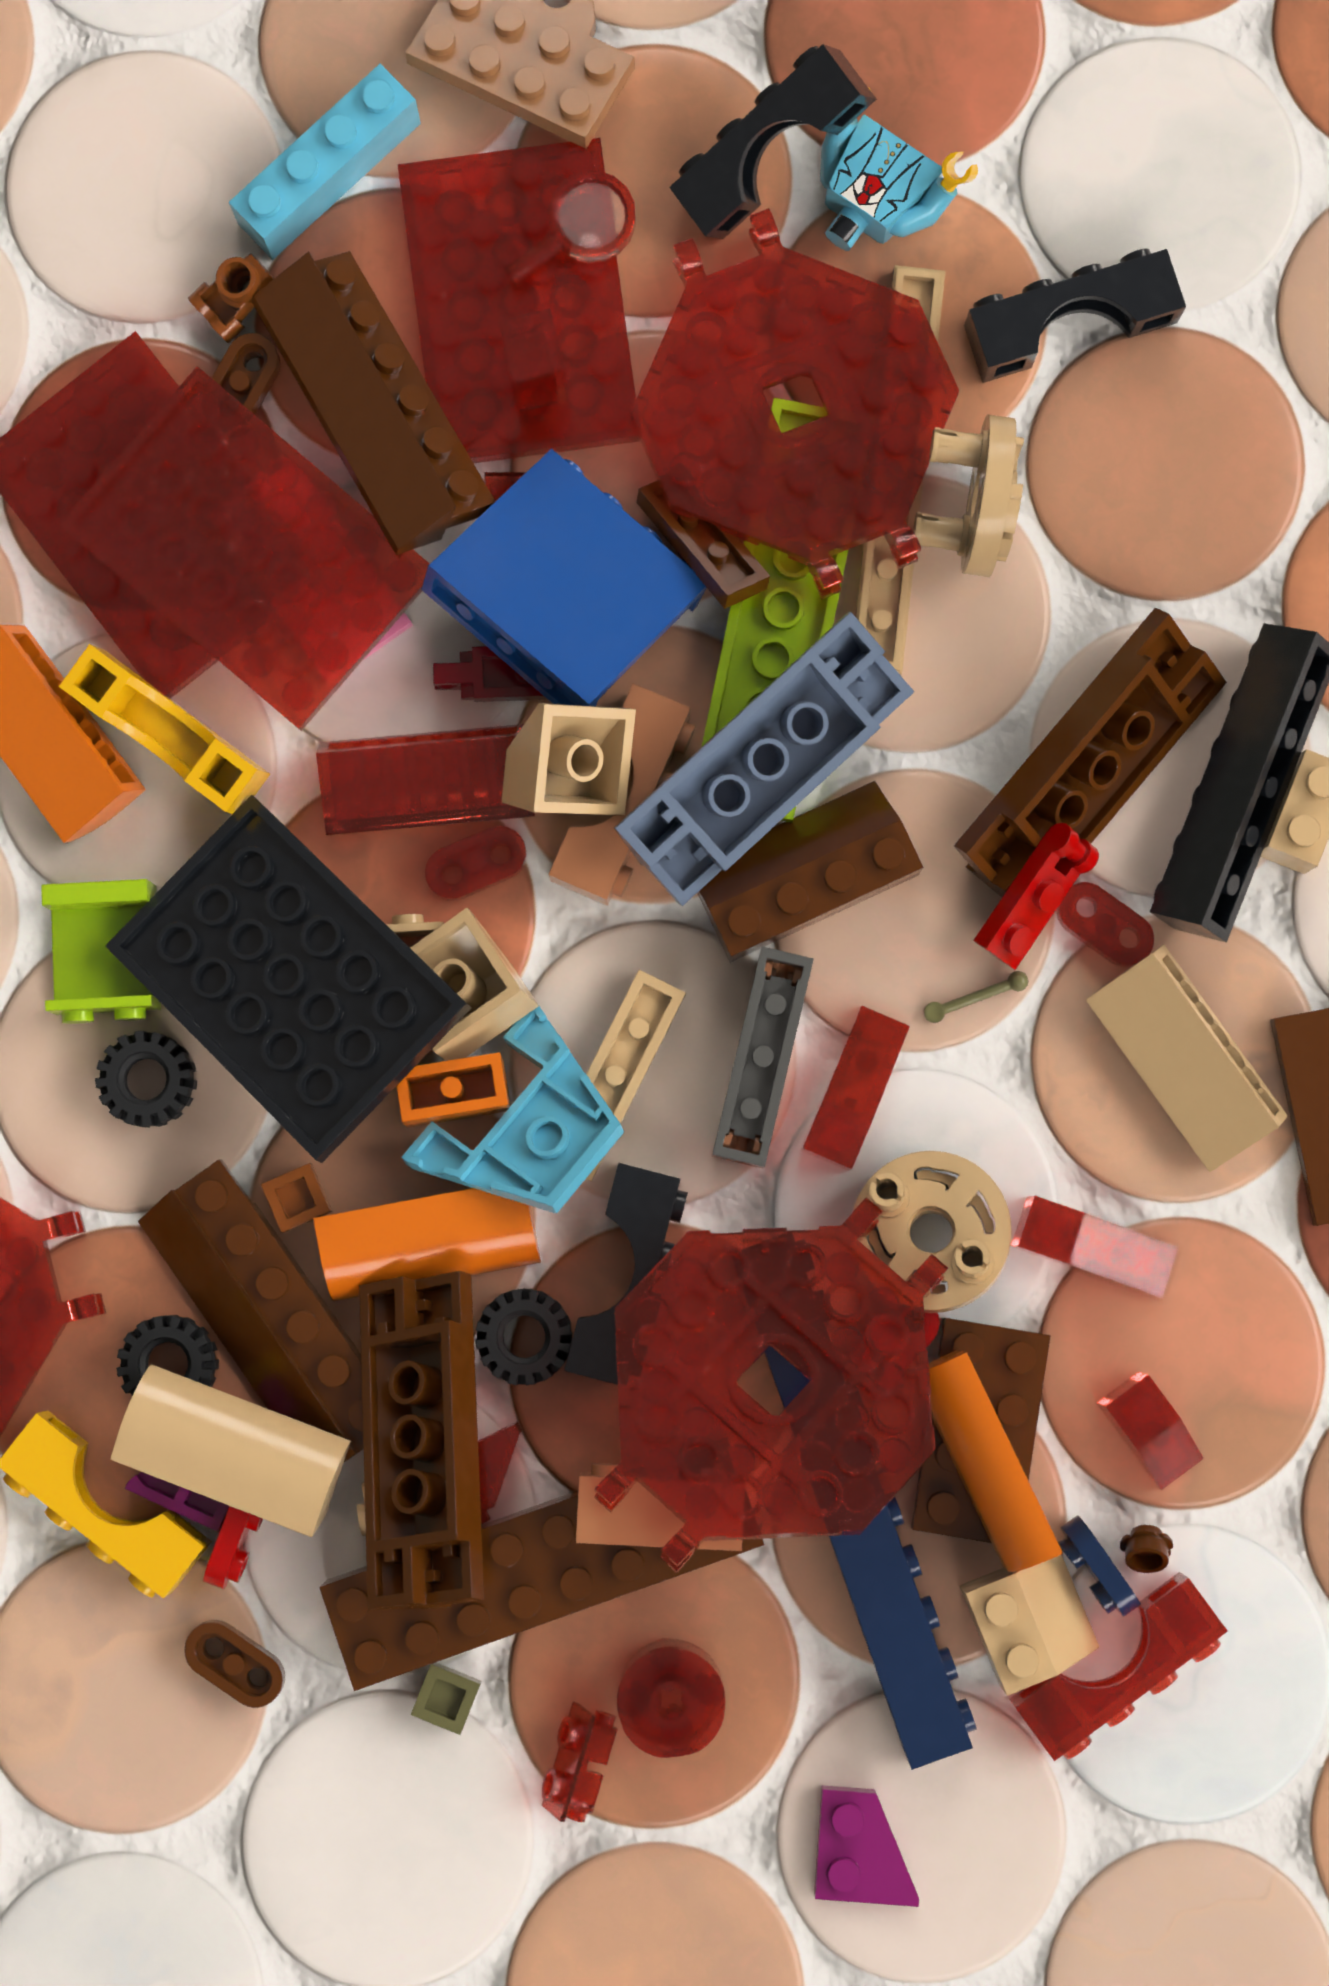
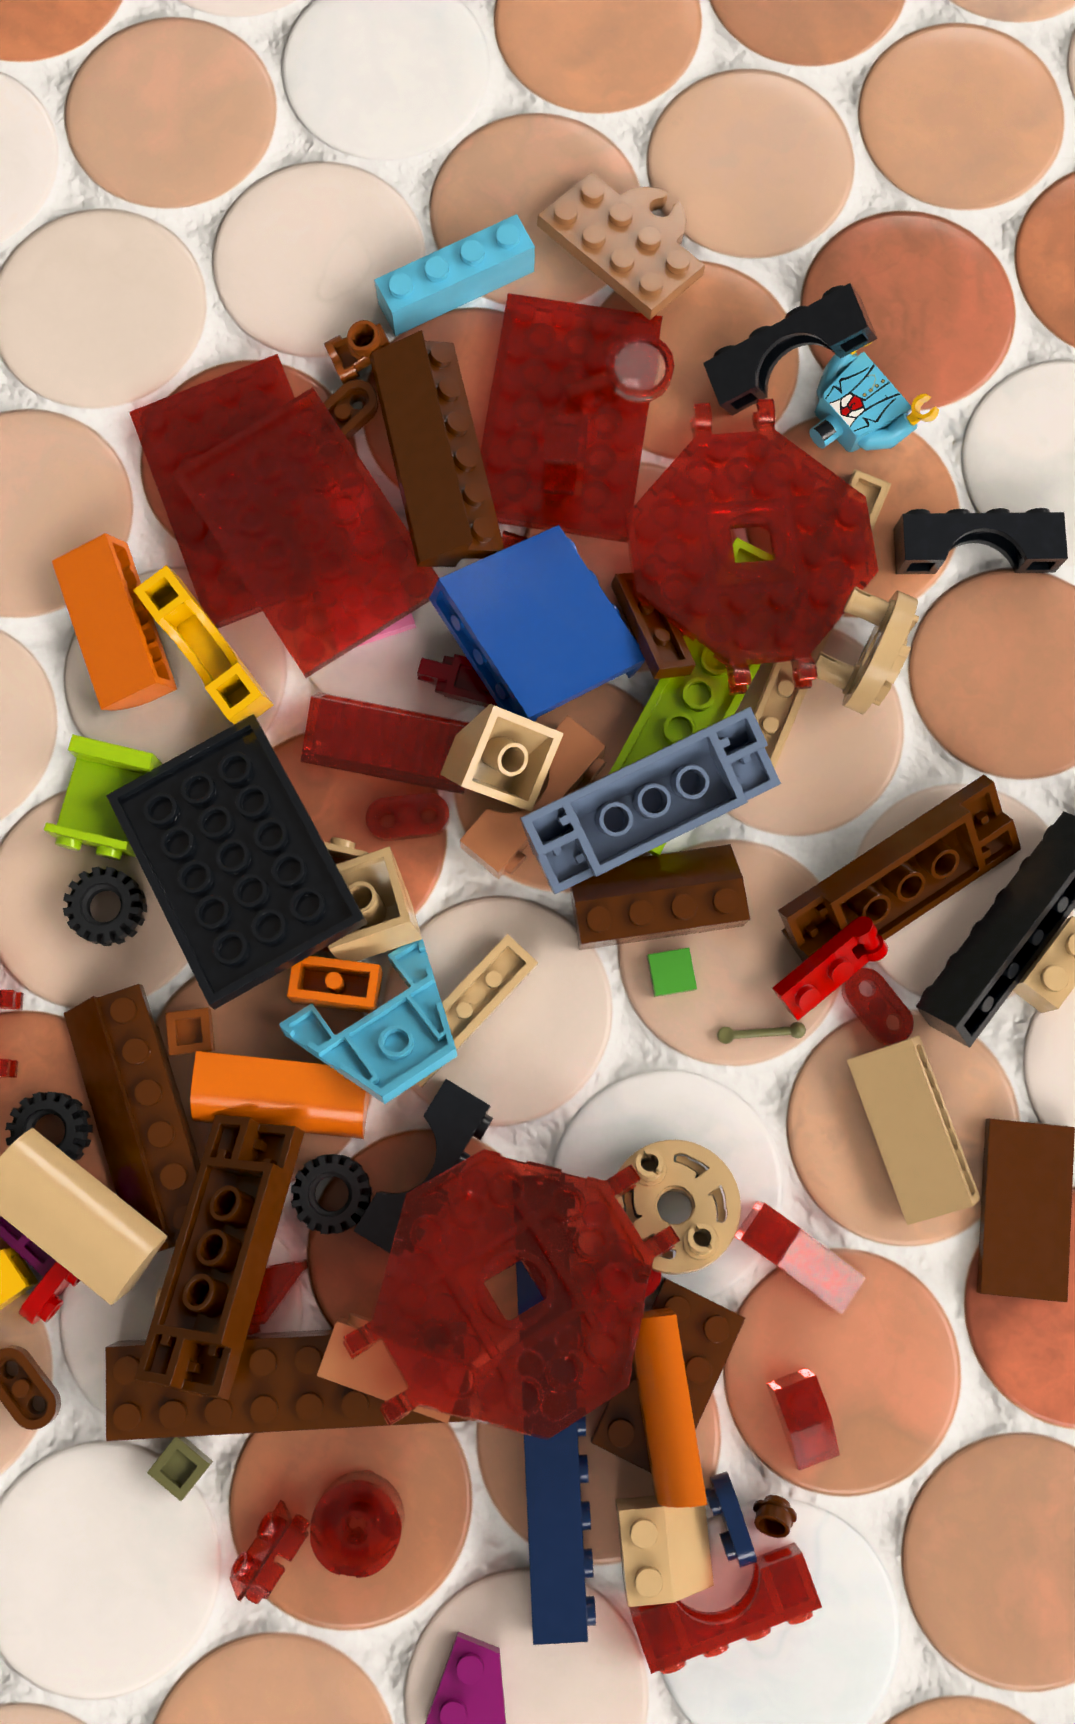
camera: 10 degrees right, 5 degrees down
(762, 1057) = (582, 1030): dark grey piece -> none
(848, 956) = (671, 972): none -> bright green tile
(855, 1089) = (647, 1076): clear red slope -> none

